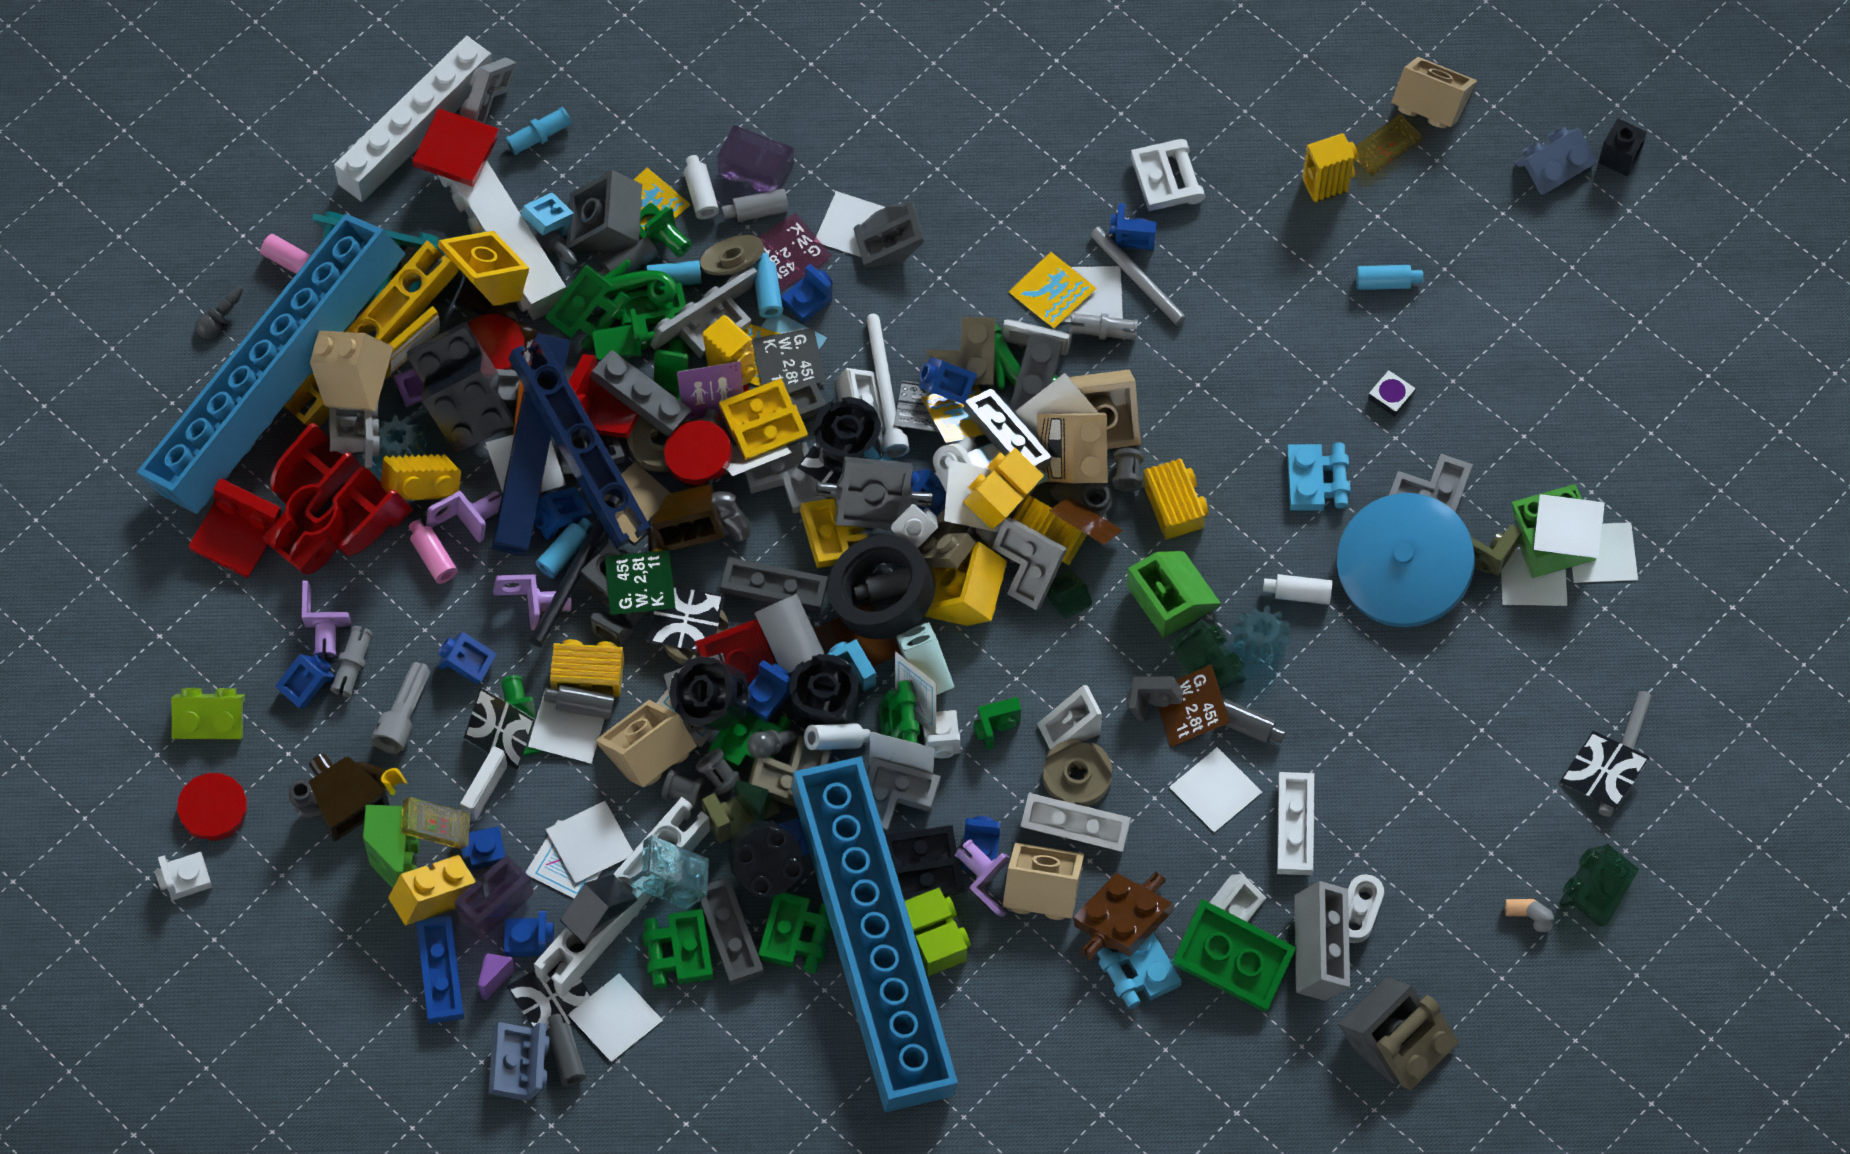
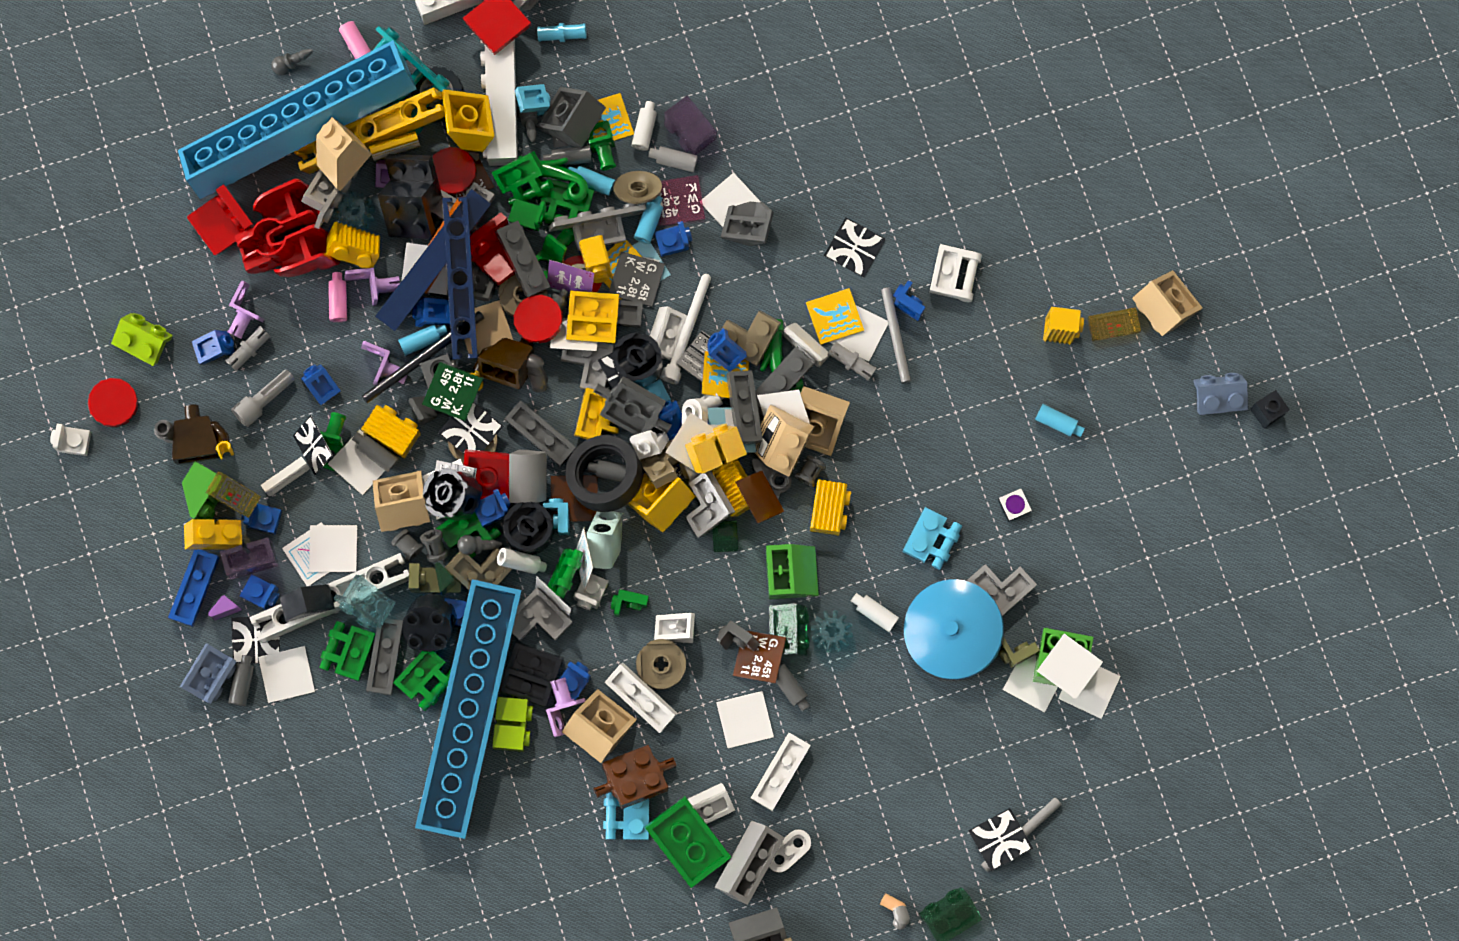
camera: 25 degrees right, 15 degrees up
(1030, 205) = (854, 247): none -> sticker

